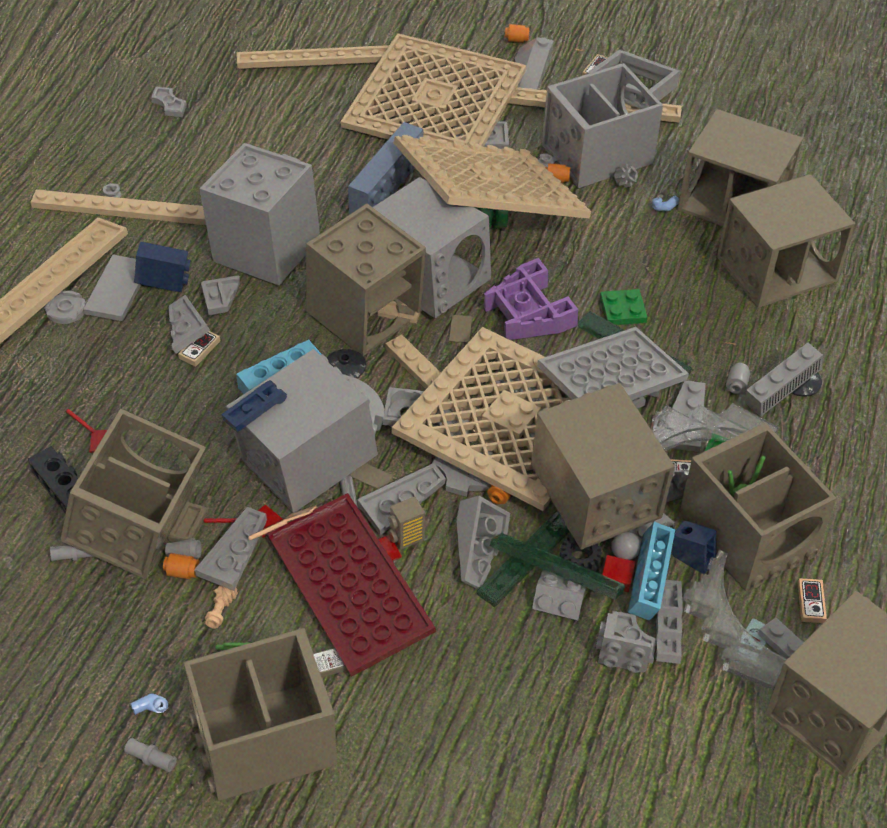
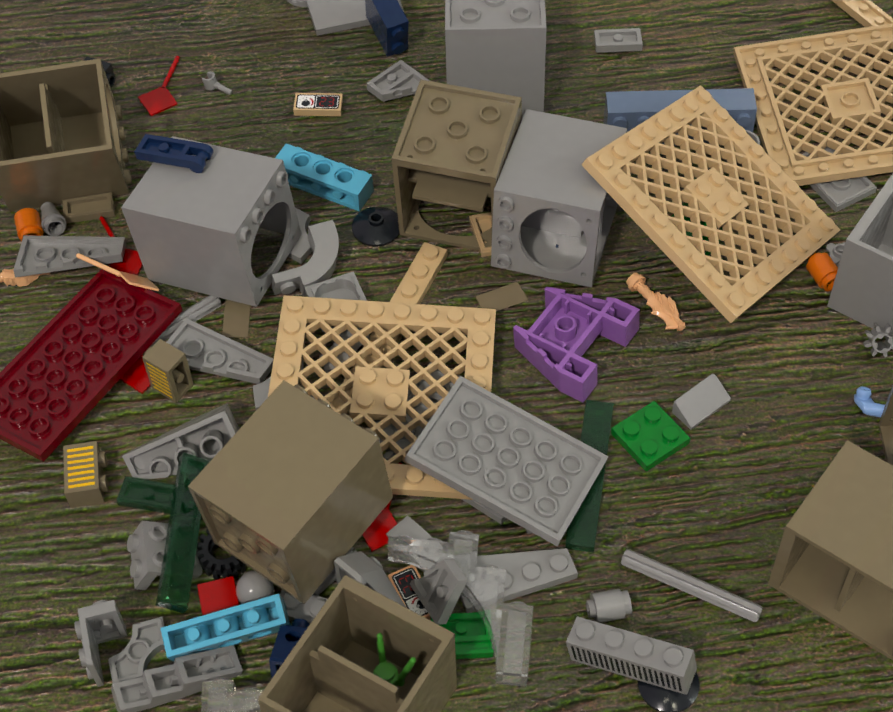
camera: 65 degrees right, 5 degrees up
(118, 399) = (211, 84): none -> light grey hand
(186, 324) = (341, 75): light grey wing -> none
(460, 612) = (84, 474): none -> dark tan brick
(527, 254) = (660, 304): none -> light nougat piece
(614, 273) = (701, 402): none -> light grey slope
(691, 440) = (440, 589): none -> light grey wing
(741, 338) = (691, 585): none -> light grey axle

